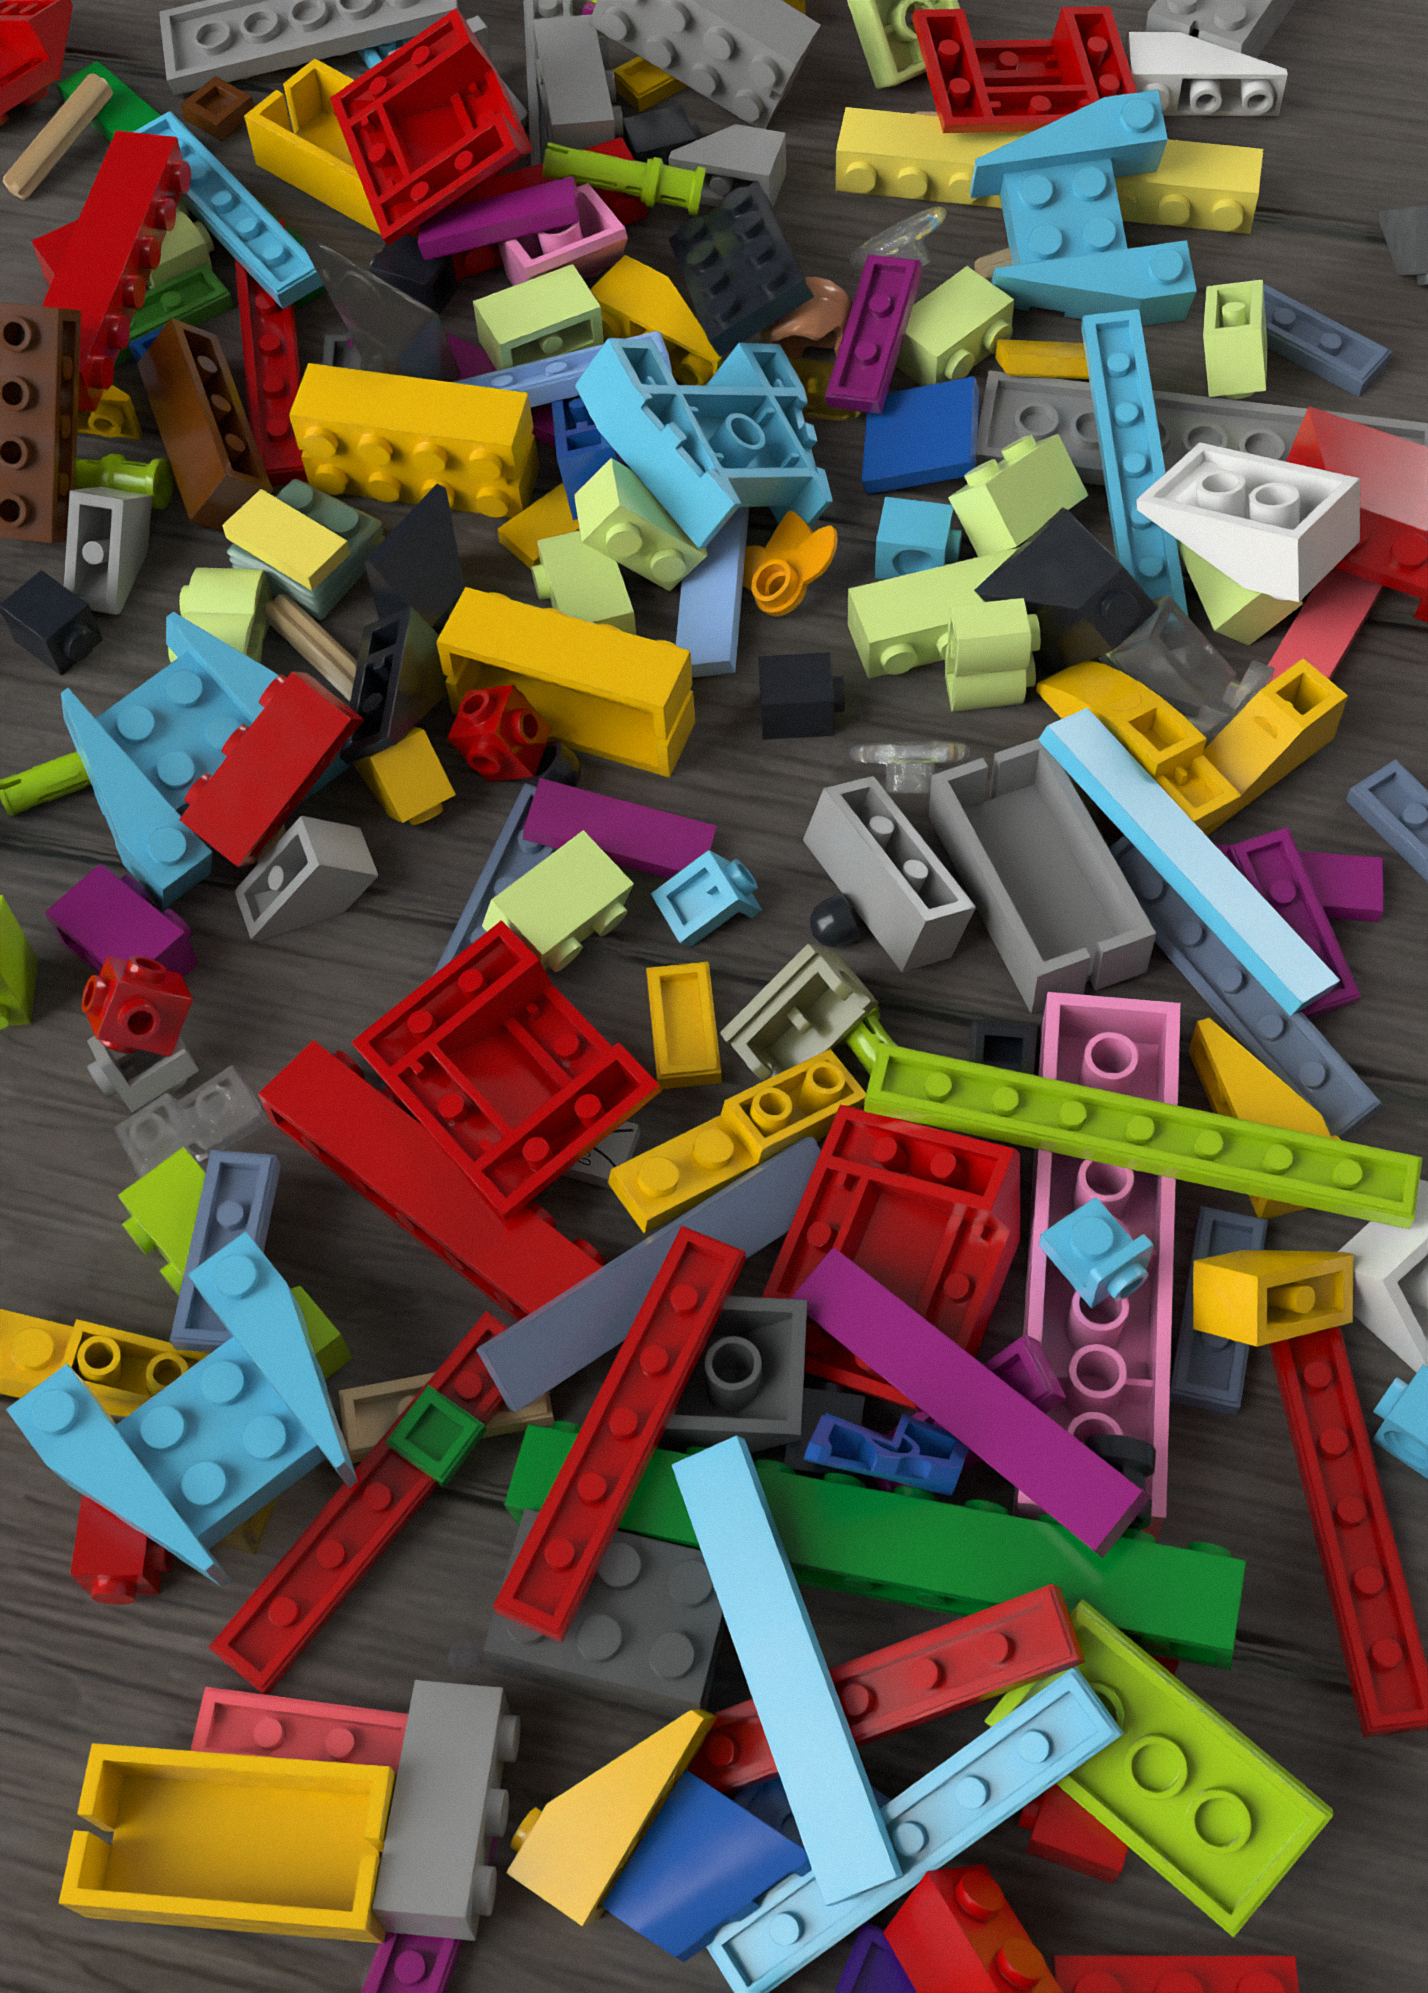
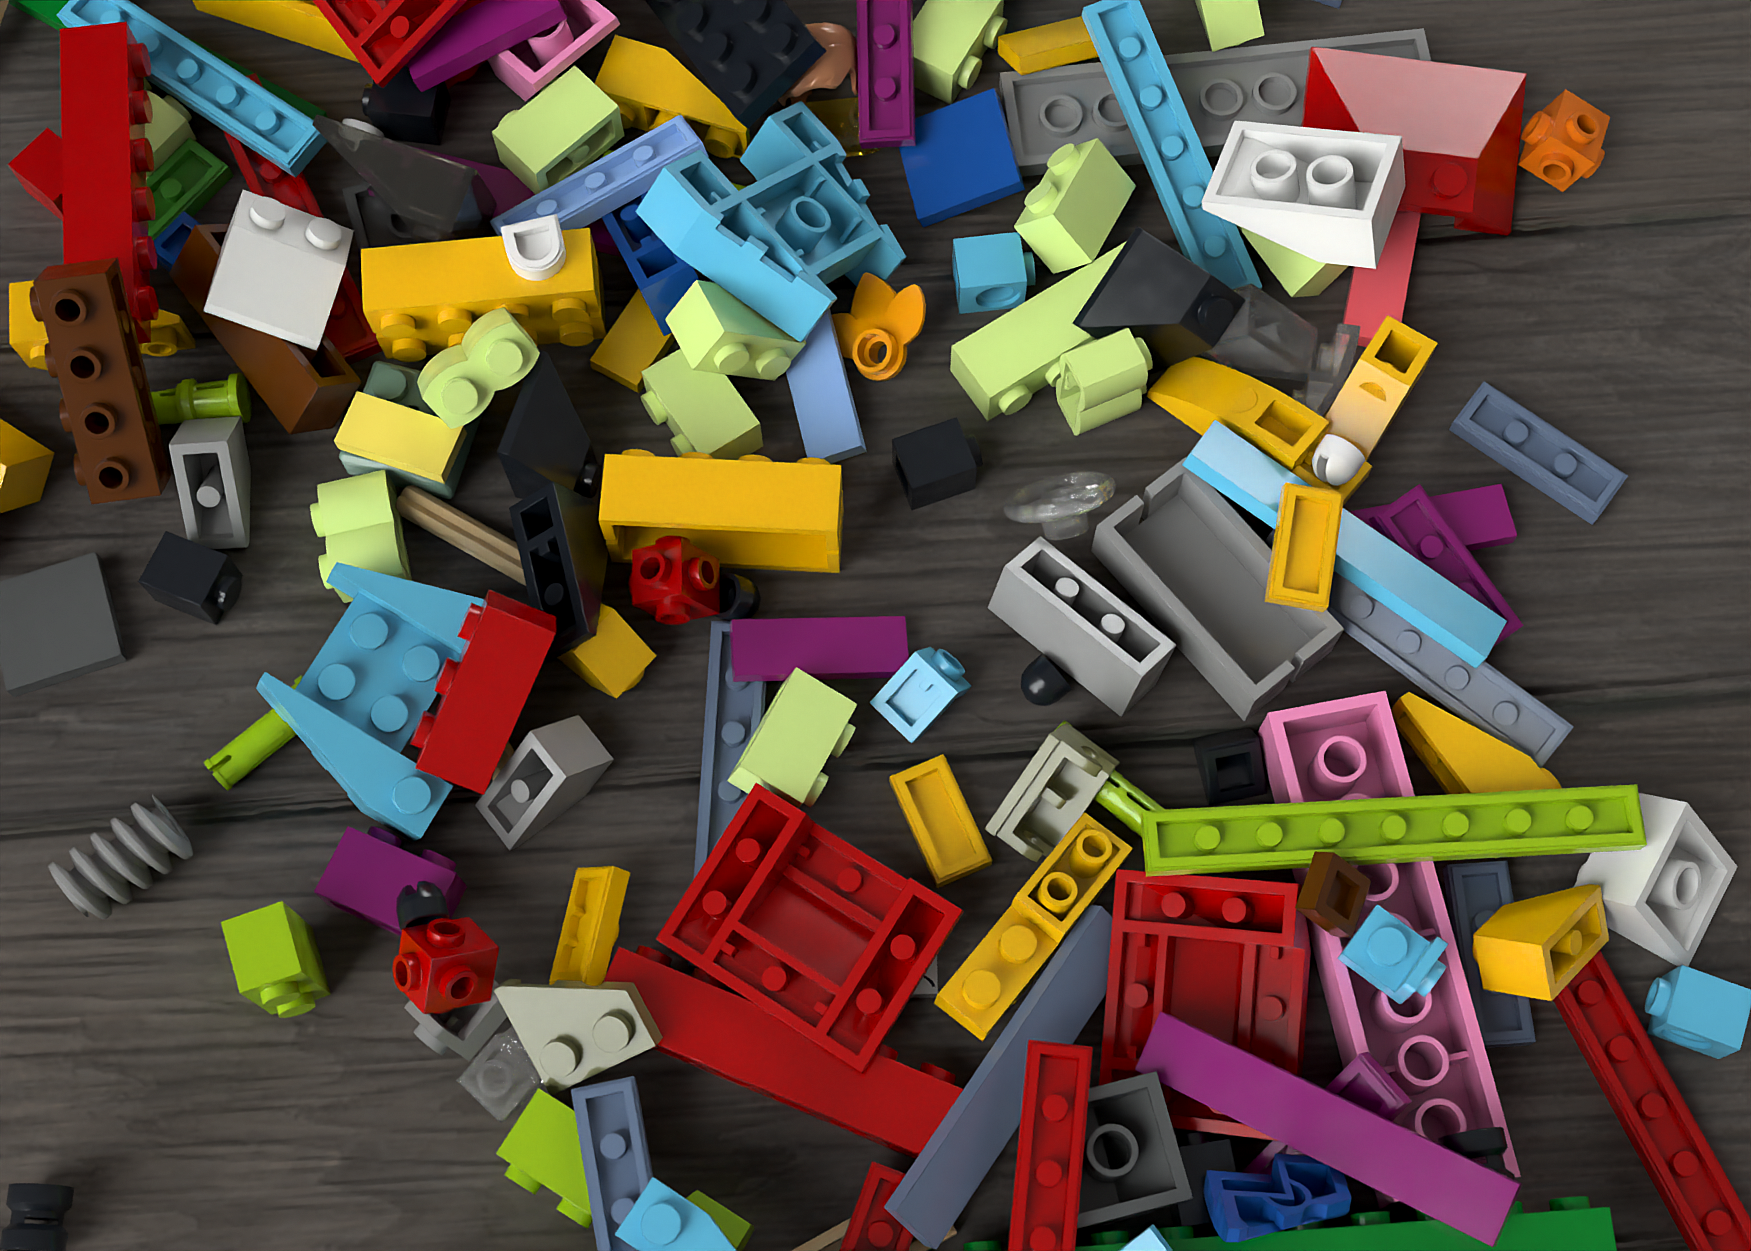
camera: 20 degrees left, 10 degrees up
(135, 939) = (421, 906): none -> black hinge
(229, 367) = (279, 270): none -> white slope
(243, 1099) = (577, 1027): none -> wing
(296, 1023) = (590, 925): none -> yellow plate
(362, 495) = (465, 376): none -> yellowish green brick
(469, 395) = (535, 247): none -> white tile
(1051, 1172) = (1333, 894): none -> reddish brown plate
(1137, 842) = (1304, 547): none -> yellow tile
(1202, 774) = (1336, 460): none -> white hinge

